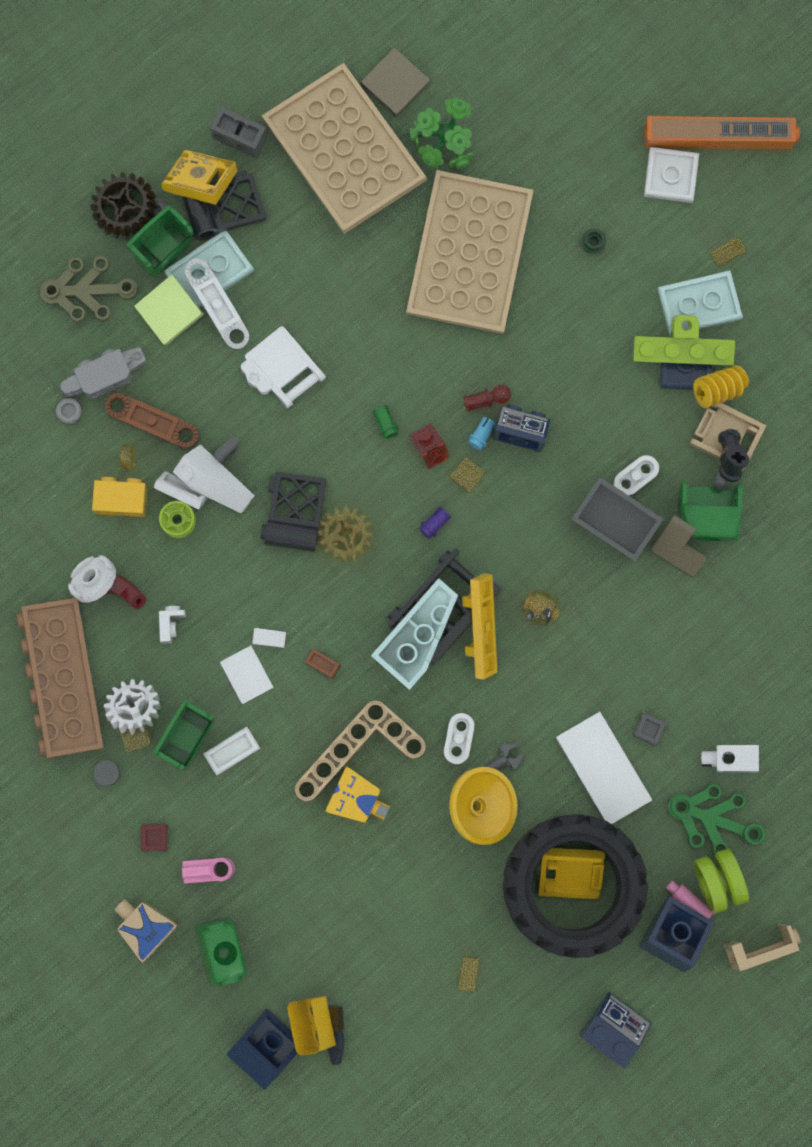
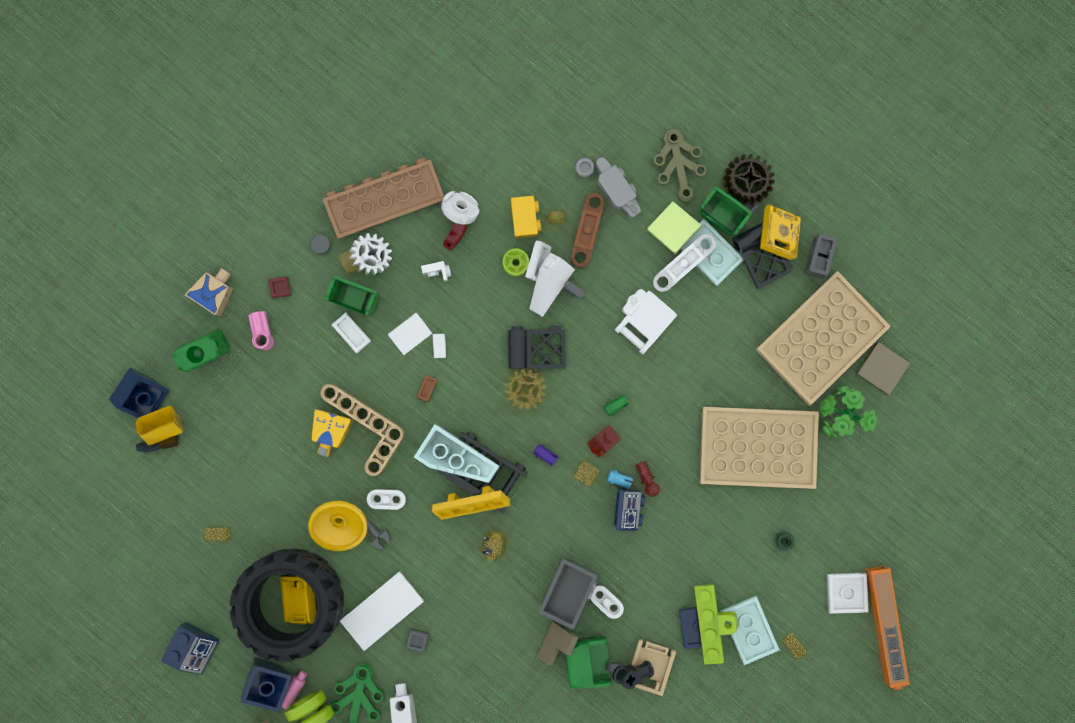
camera: 85 degrees right, 5 degrees up
(720, 386) = (685, 657): yellow piece -> none

